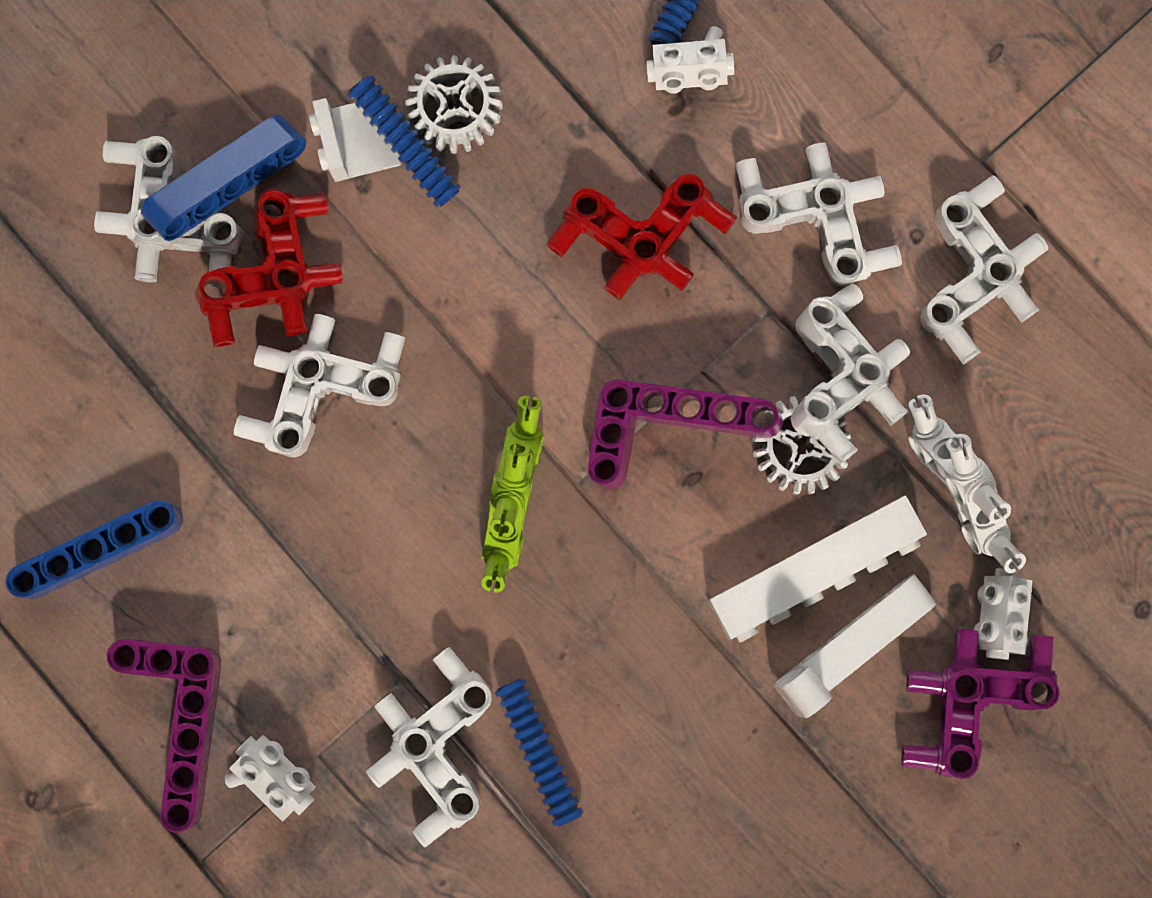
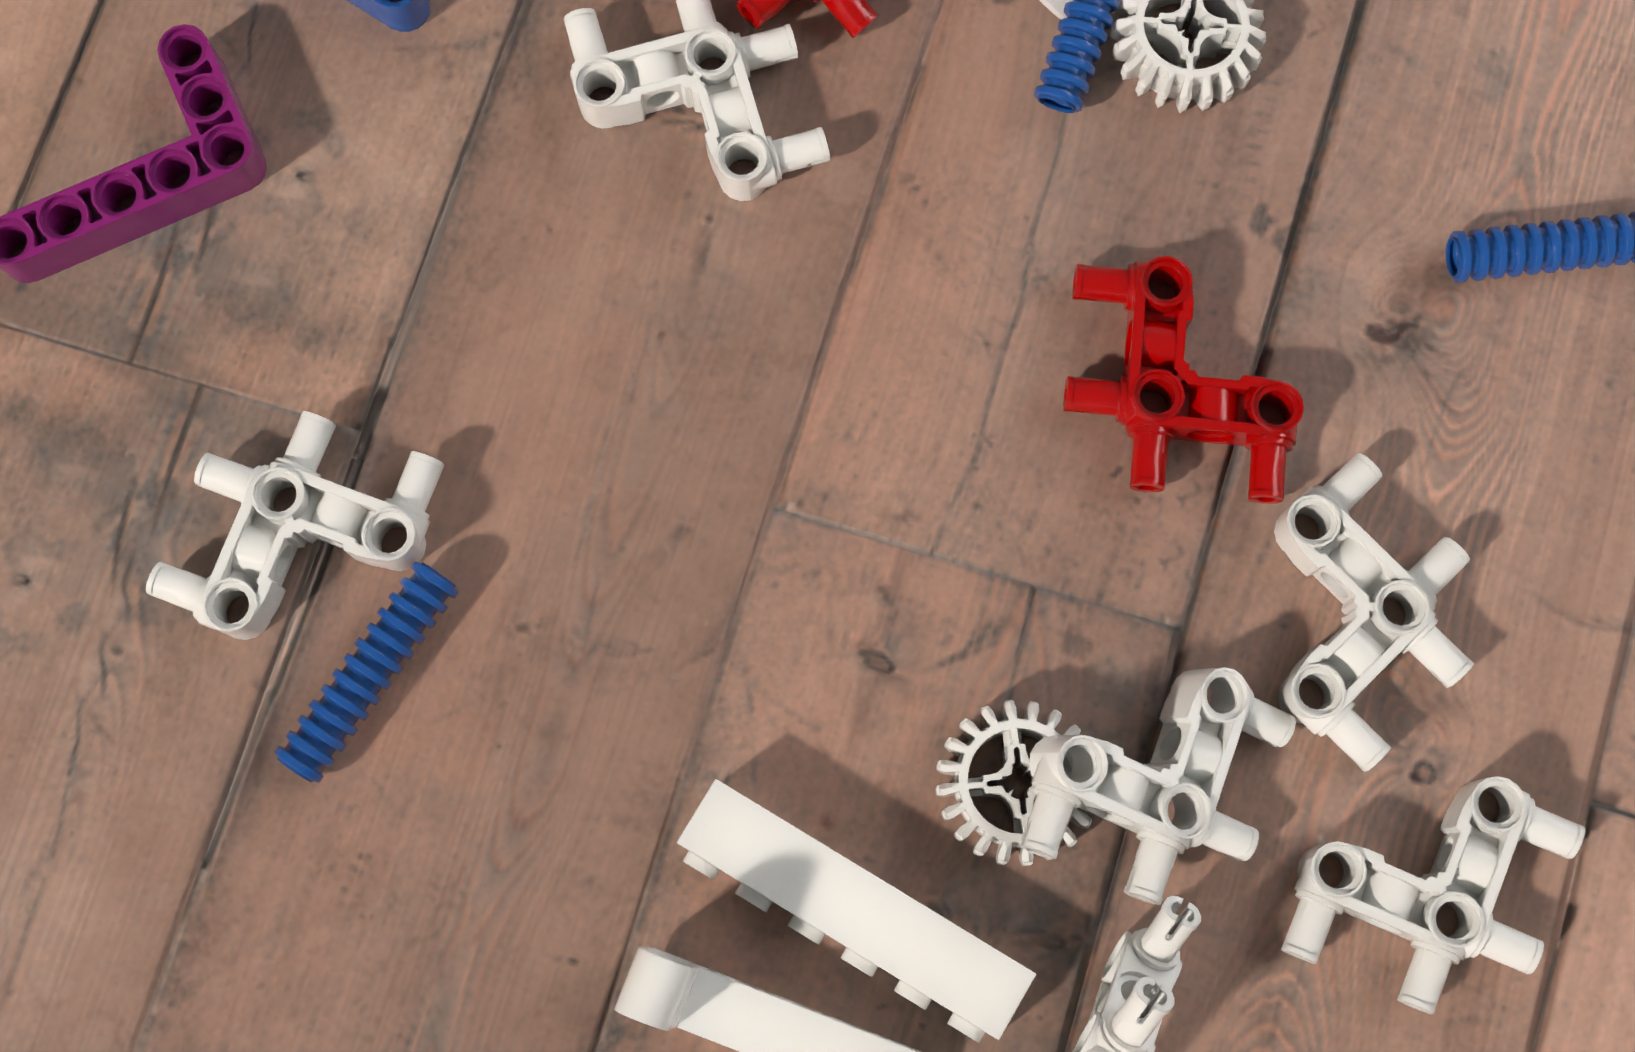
camera: 60 degrees right, 5 degrees down
(271, 777) = (131, 335): white brick -> none
(511, 494) = (698, 408): lime pin -> none
(670, 414) = (948, 568): magenta beam -> none
(691, 64) = (1454, 309): white brick -> none

